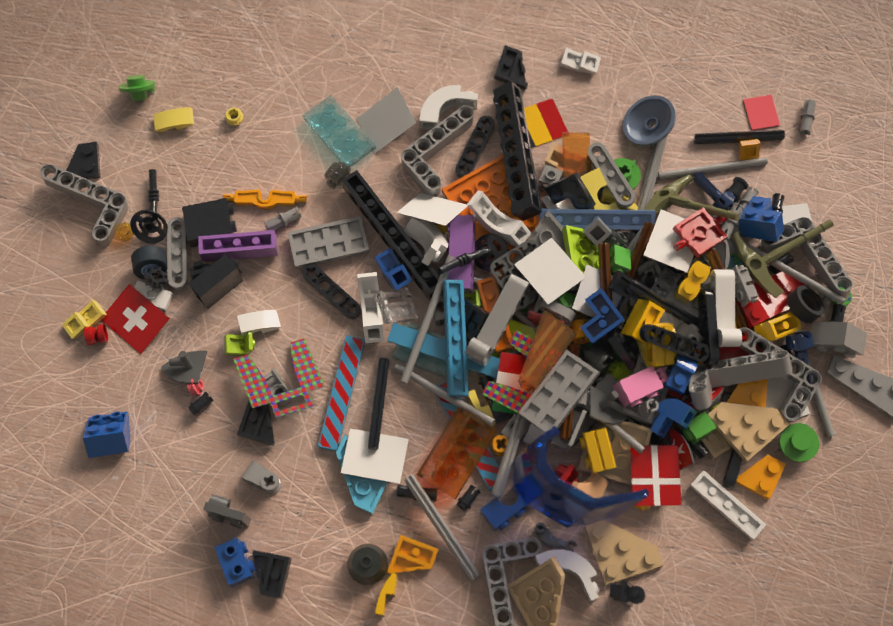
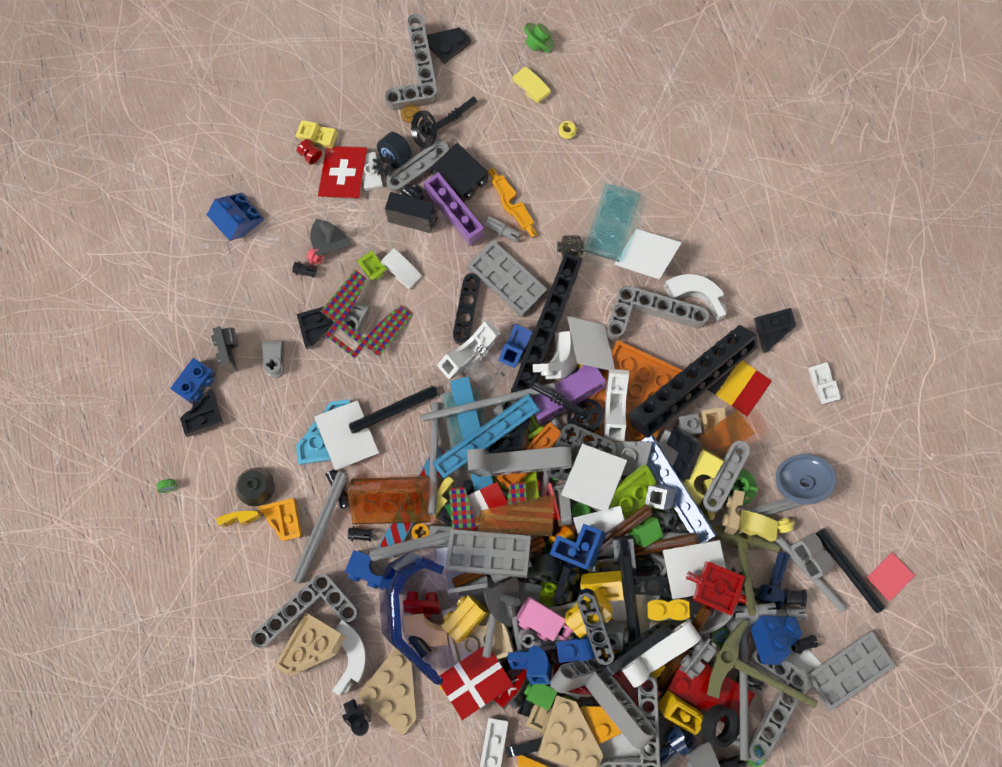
camera: 55 degrees right, 5 degrees up
(341, 393) = (384, 374): tile -> none
(474, 147) = (676, 342): black beam -> none
(549, 540) = (365, 624): dark grey arm -> none
(648, 192) = (732, 519): none -> tan piece
(661, 179) = (754, 523): none -> light yellow slope
(675, 160) = (785, 525): none -> light yellow plate
(708, 155) = (813, 557): none -> light grey brick
(749, 149) = (842, 587): light orange tile -> none
(807, 117) = (915, 622): light grey axle -> none
(817, 185) = (850, 670): none -> light grey plate

